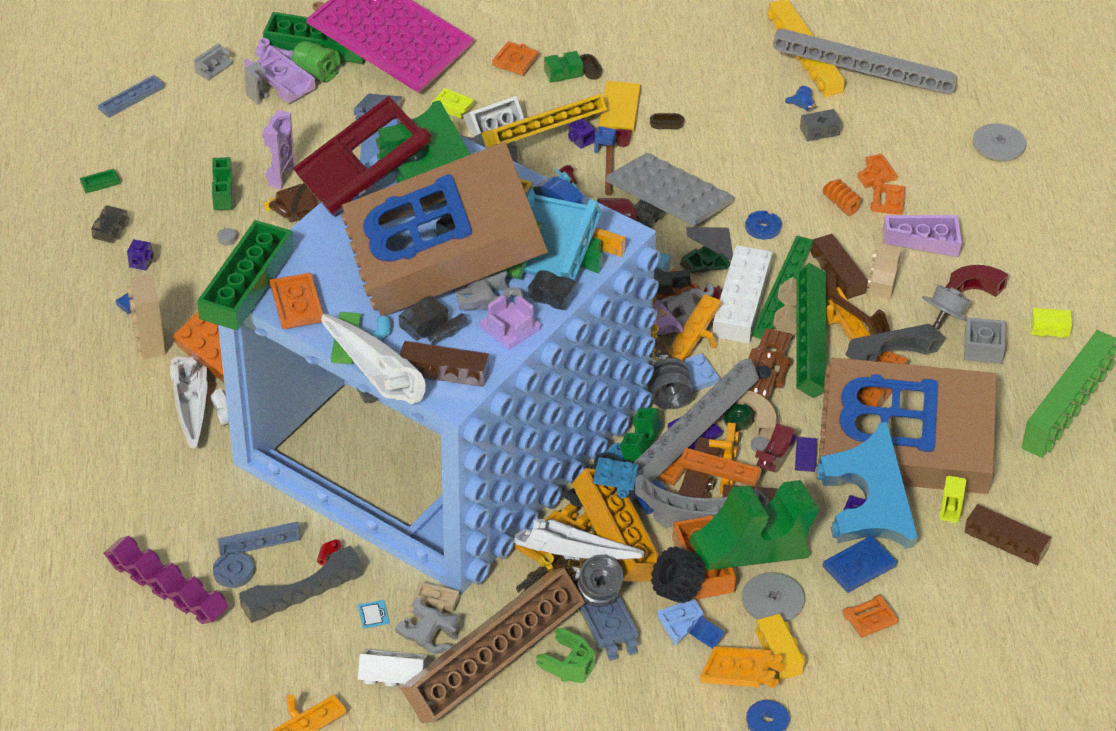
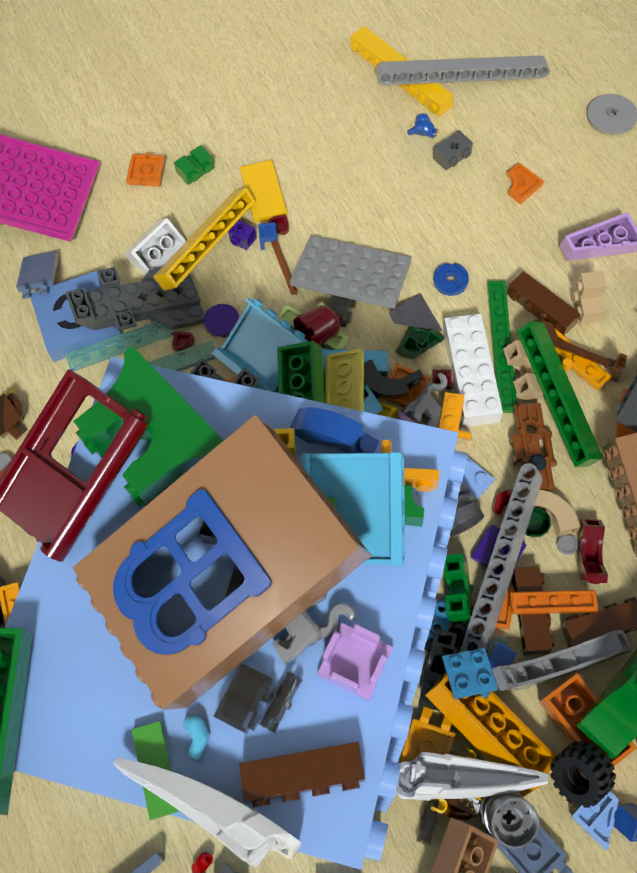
camera: 15 degrees left, 20 degrees up
(296, 300) = (67, 732): orange plate -> none
(455, 103) = (107, 241): neon yellow plate -> none
(552, 290) = (384, 585): clear smoke brick -> none
(569, 170) = (249, 287): dark red piece -> none
(591, 67) = (220, 157): dark brown tile -> none
(666, 121) = (312, 192): dark brown tile -> none
(730, 450) = (547, 571): light orange plate -> none
(805, 454) = (616, 542): dark purple tile -> none
(842, 196) = (509, 223): orange piece -> none
(893, 201) = (552, 208): orange plate -> none

